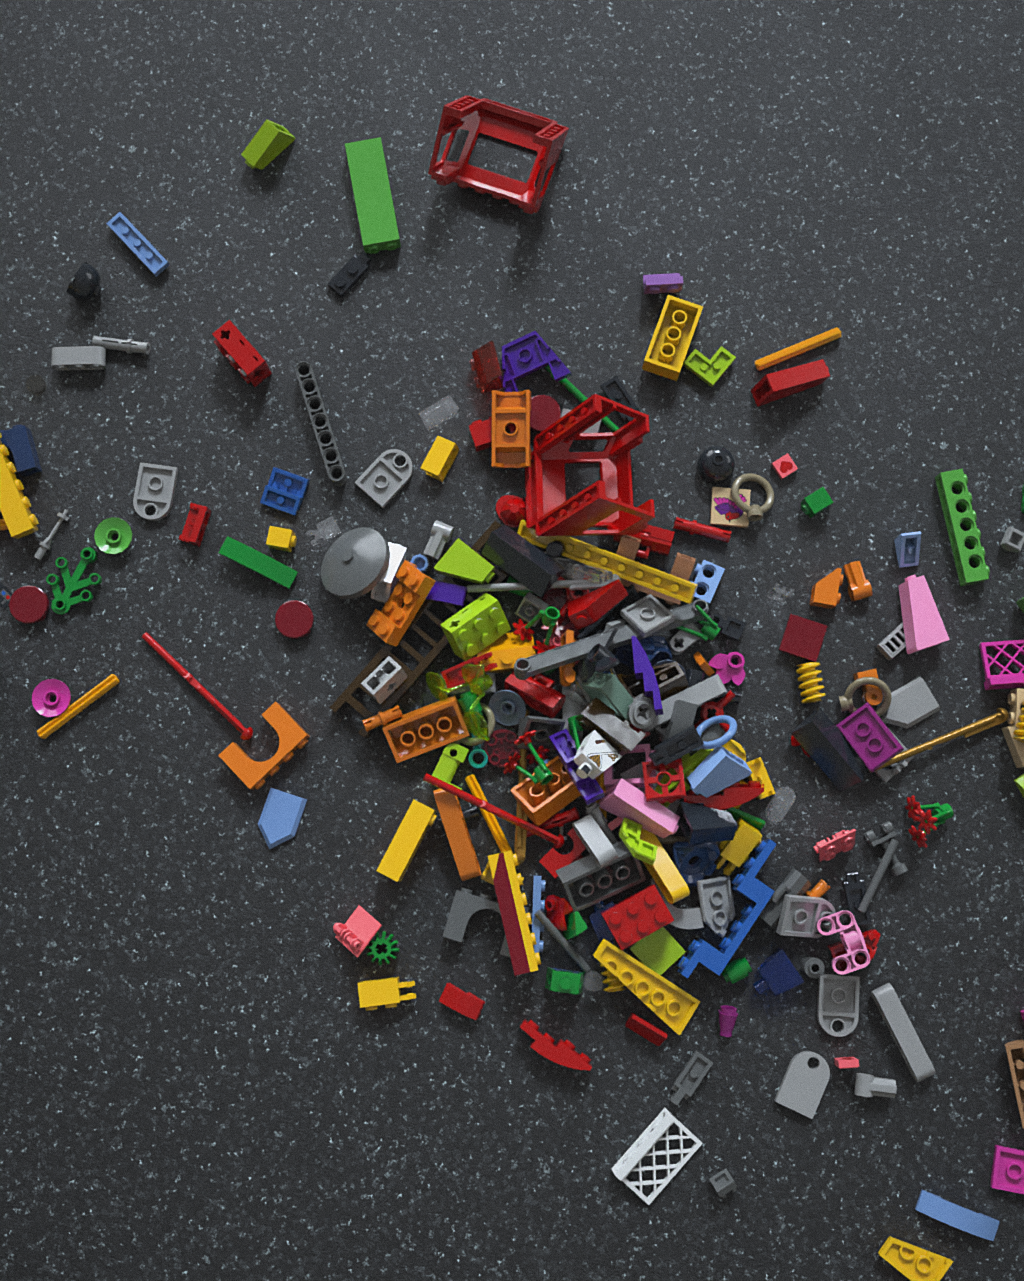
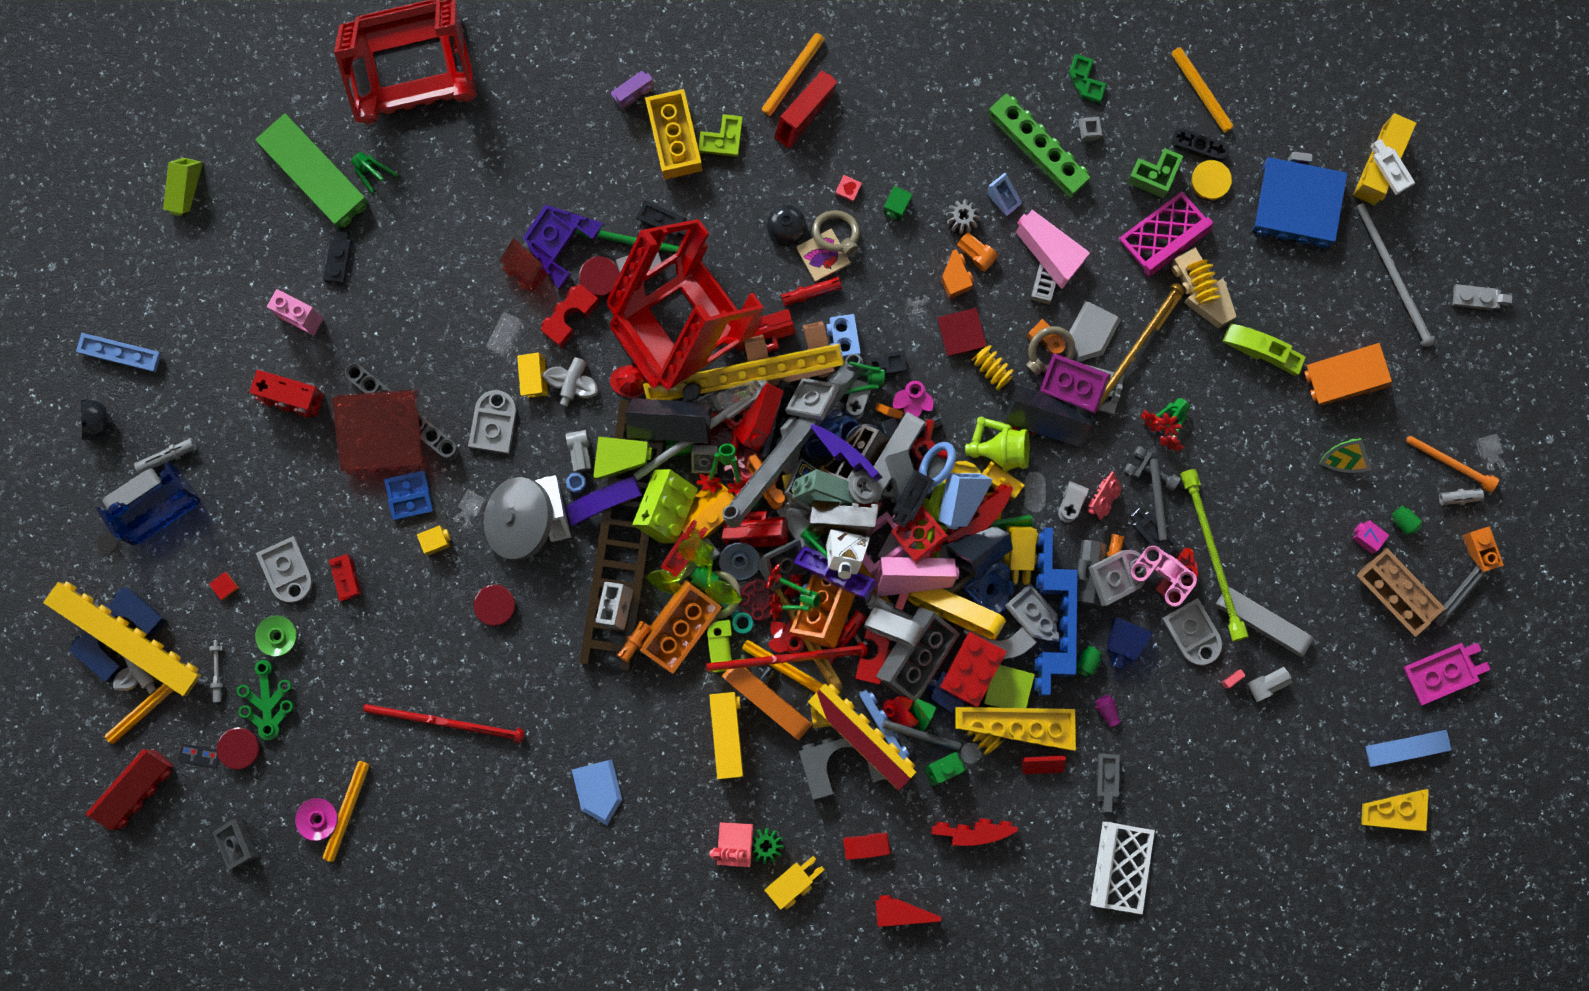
camera: 35 degrees left, 0 degrees up
(81, 379) = (152, 509): none -> clear blue windscreen
(100, 472) = (223, 586): none -> red tile
(258, 562) = (426, 575): green slope -> none
(288, 294) = (295, 311): none -> bright pink window
(290, 738) = (548, 765): orange arch -> none
(291, 426) = (377, 431): none -> clear red panel
(393, 618) = (585, 548): orange piece -> none
(416, 214) = (364, 164): none -> green plant
(452, 1071) = (897, 912): none -> red slope
(467, 482) = (571, 381): none -> light grey plant
(502, 791) = (783, 637): none -> red plate
(511, 449) = (594, 325): orange piece -> none
(598, 660) = (794, 465): black piece -> none
(630, 835) = (921, 602): lime tile -> none
(723, 1183) = (1193, 852): dark grey tile -> none
(779, 755) = (1007, 449): none -> lime piece
(803, 1085) = (1210, 723): light grey tile -> none
(807, 964) = (1146, 617): dark grey brick -> none
(808, 830) = (1073, 498): none -> light grey piece
(861, 553) = (954, 215): none -> light grey gear
(876, 1023) = (1236, 627): none -> lime hose

